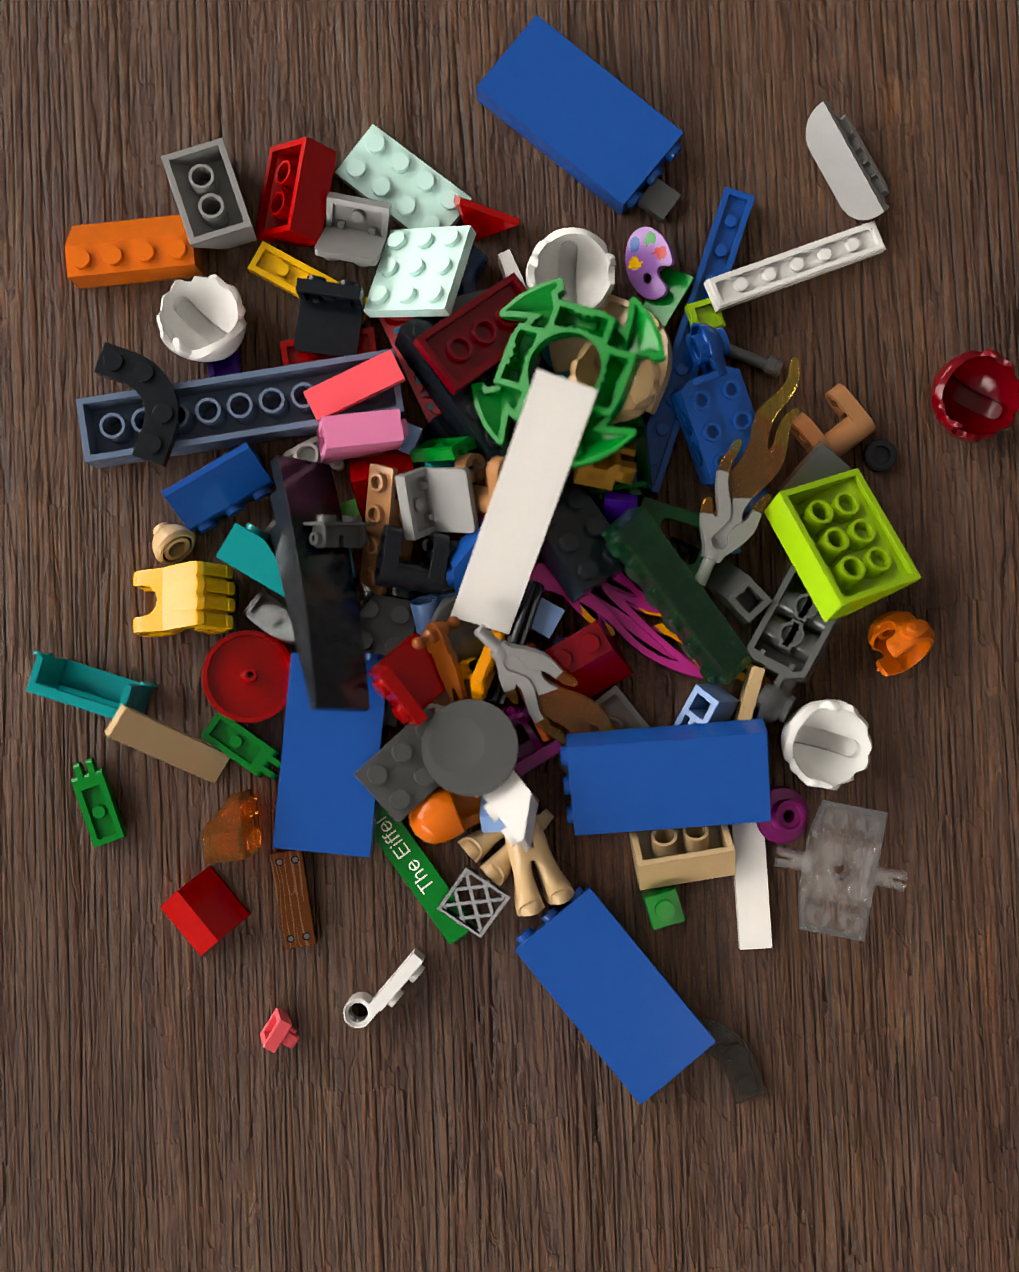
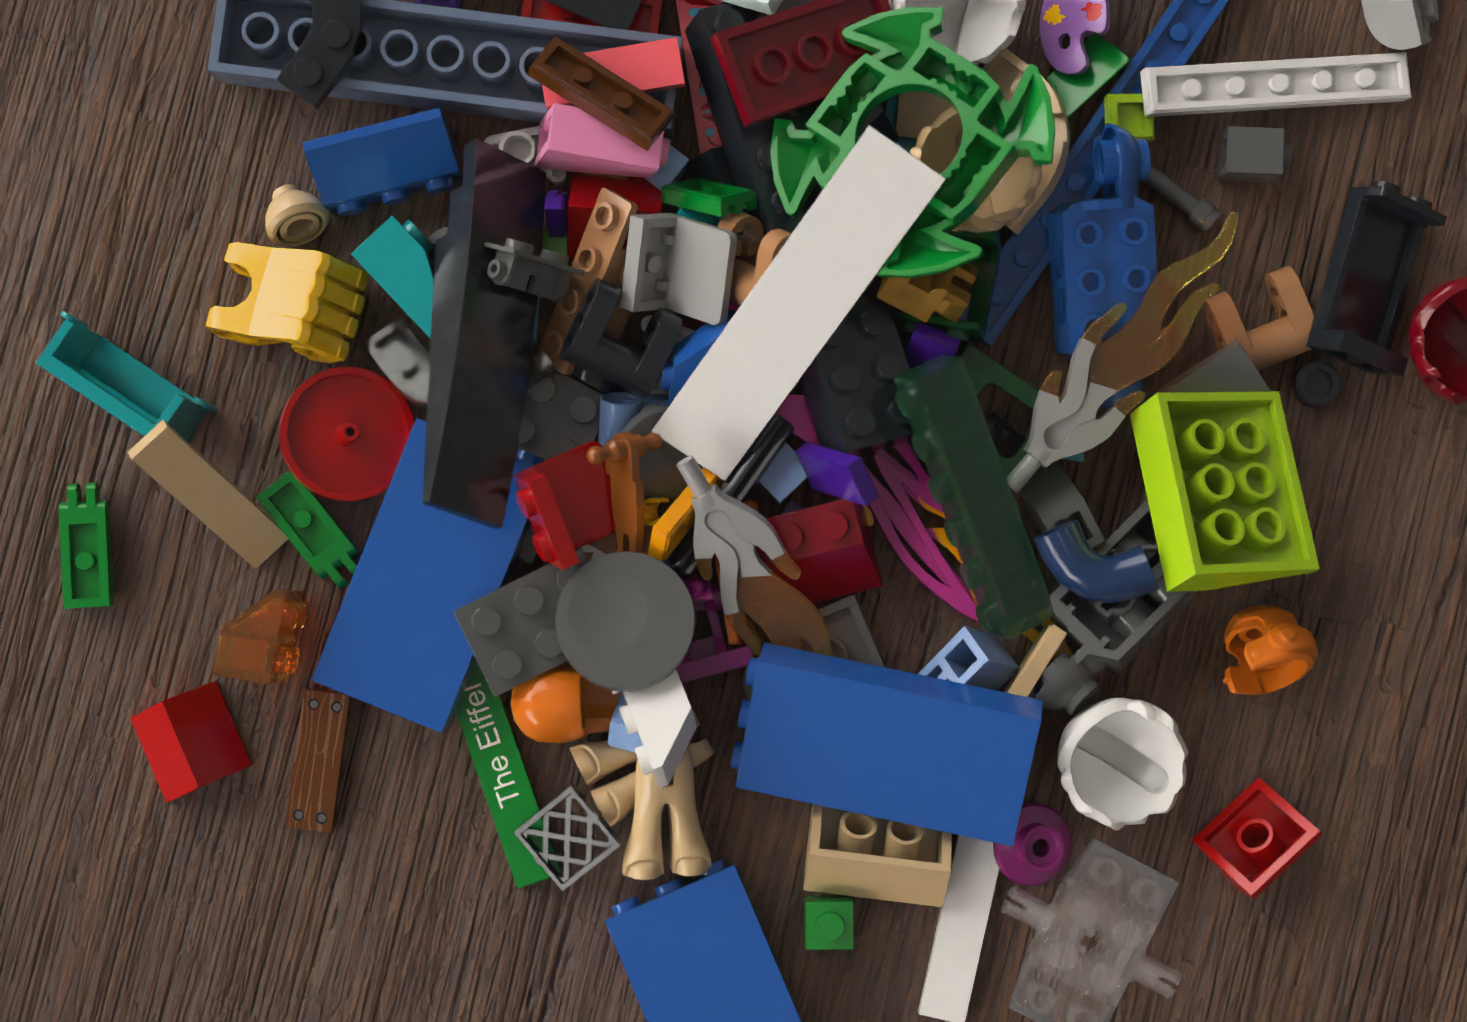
camera: 10 degrees right, 0 degrees up
(278, 1031) = (245, 938): coral tile -> none
(344, 489) = (556, 213): none -> dark purple tile
(350, 401) = (600, 93): none -> reddish brown tile
(388, 994) = (413, 930): white plate -> none
(582, 608) = (837, 473): none -> dark purple tile
(771, 624) = (1093, 574): none -> dark blue cylinder
(793, 316) = (1252, 154): none -> dark grey brick
(895, 375) = (1371, 277): none -> black panel
(929, 768) = (1256, 838): none -> red slope

